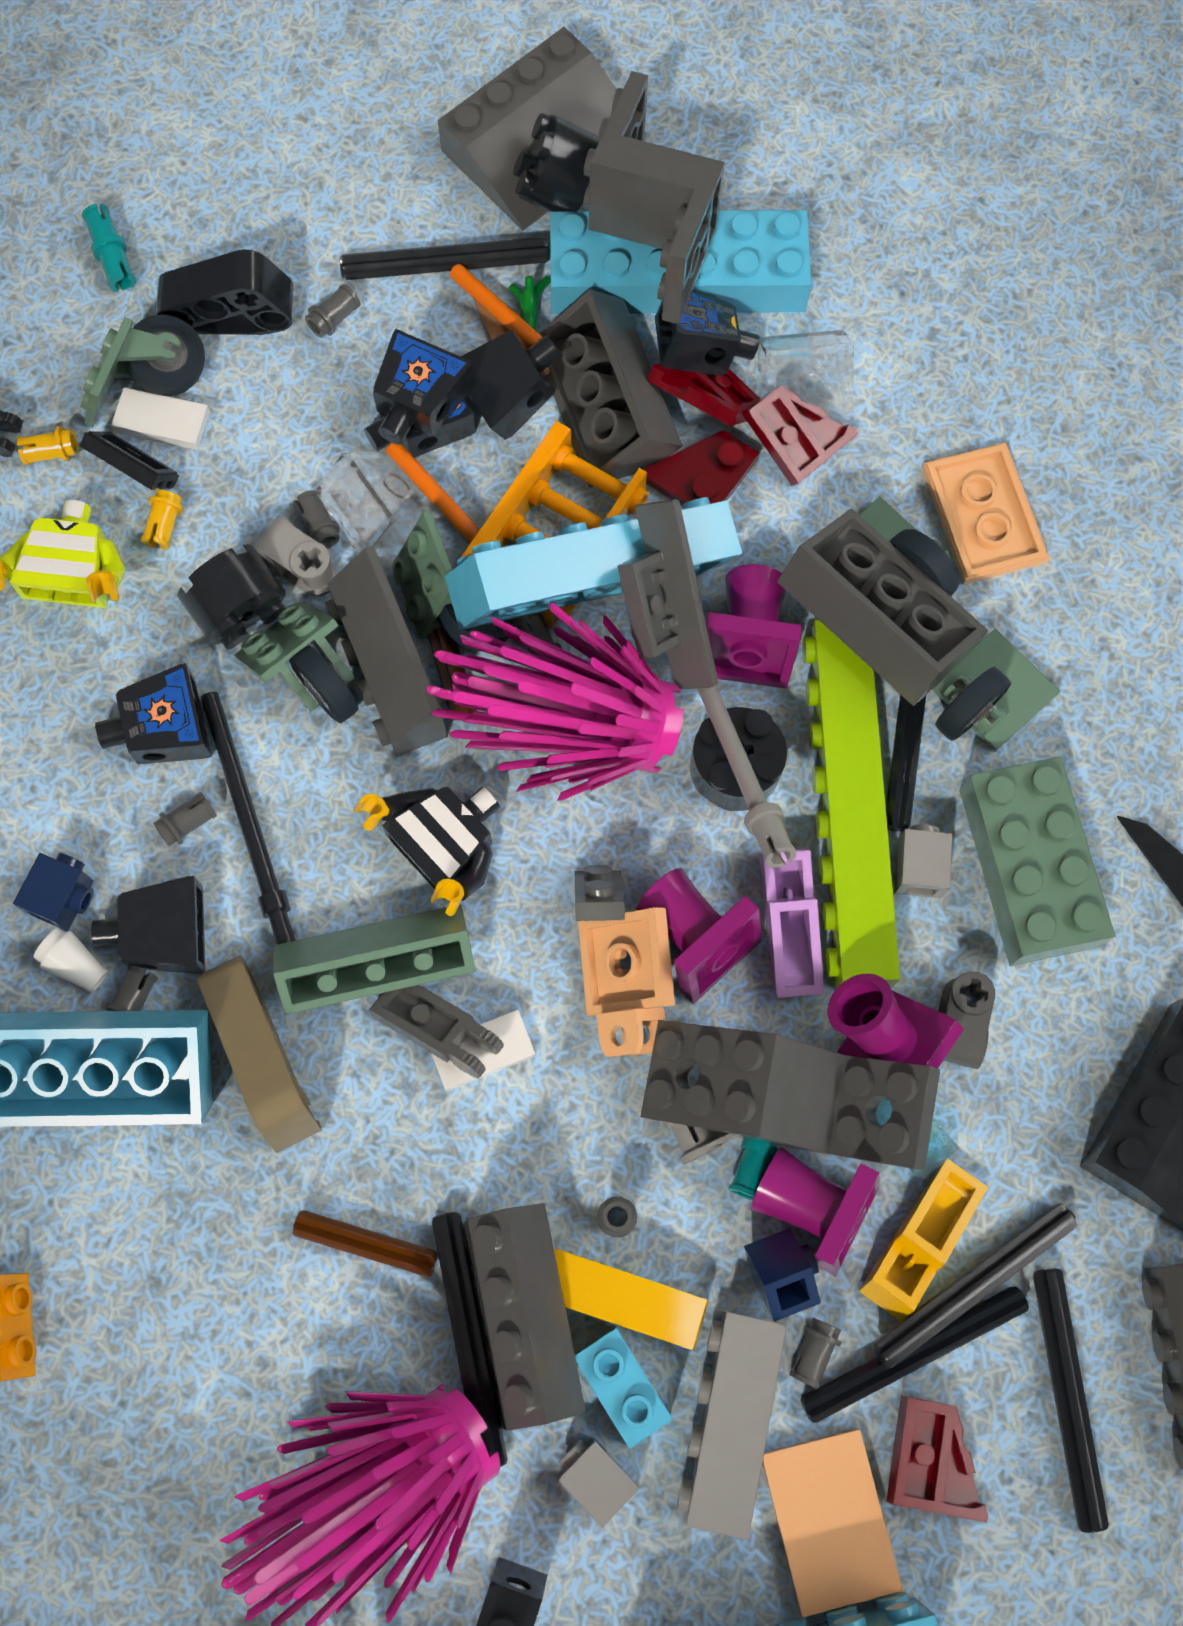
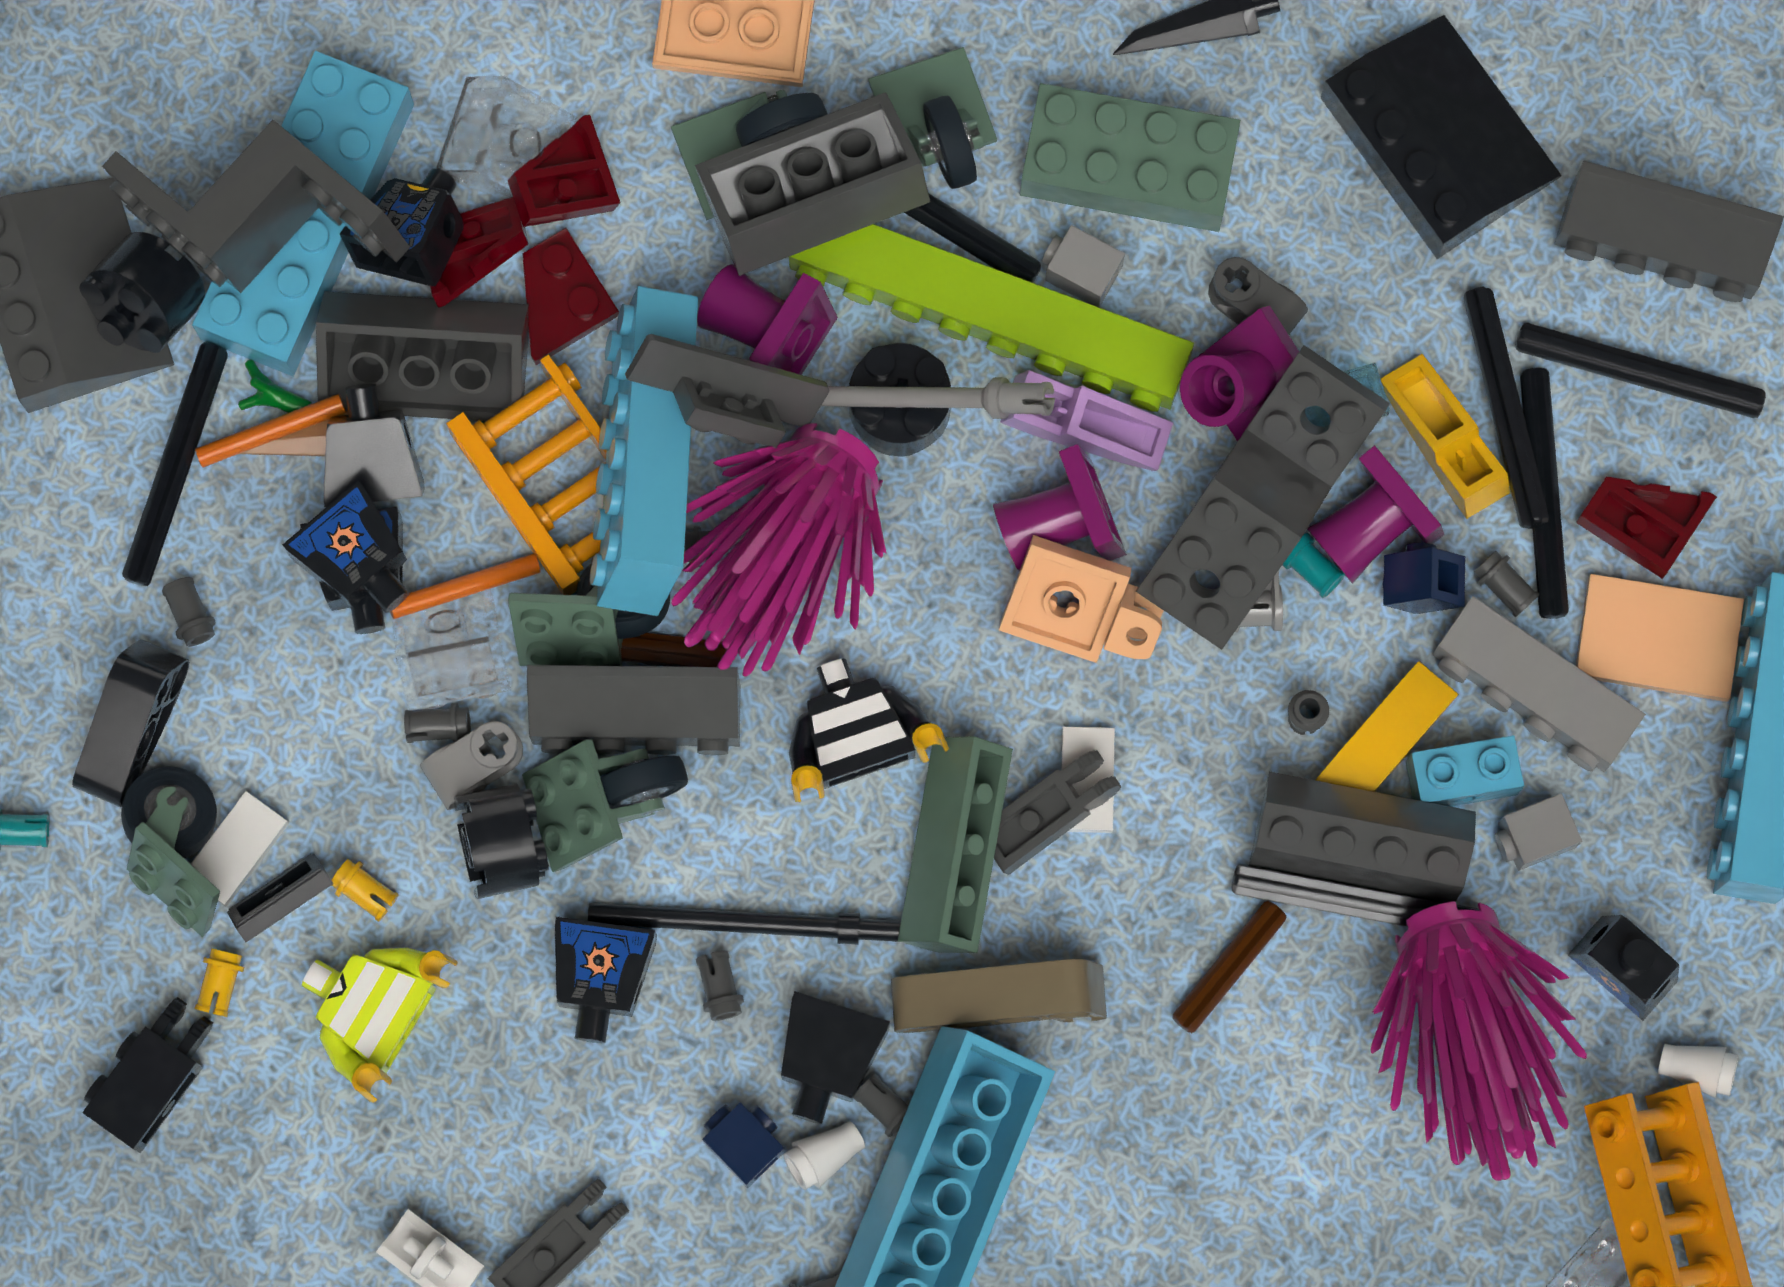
camera: 65 degrees left, 5 degrees up
(599, 894) = (985, 596): dark grey plate -> none

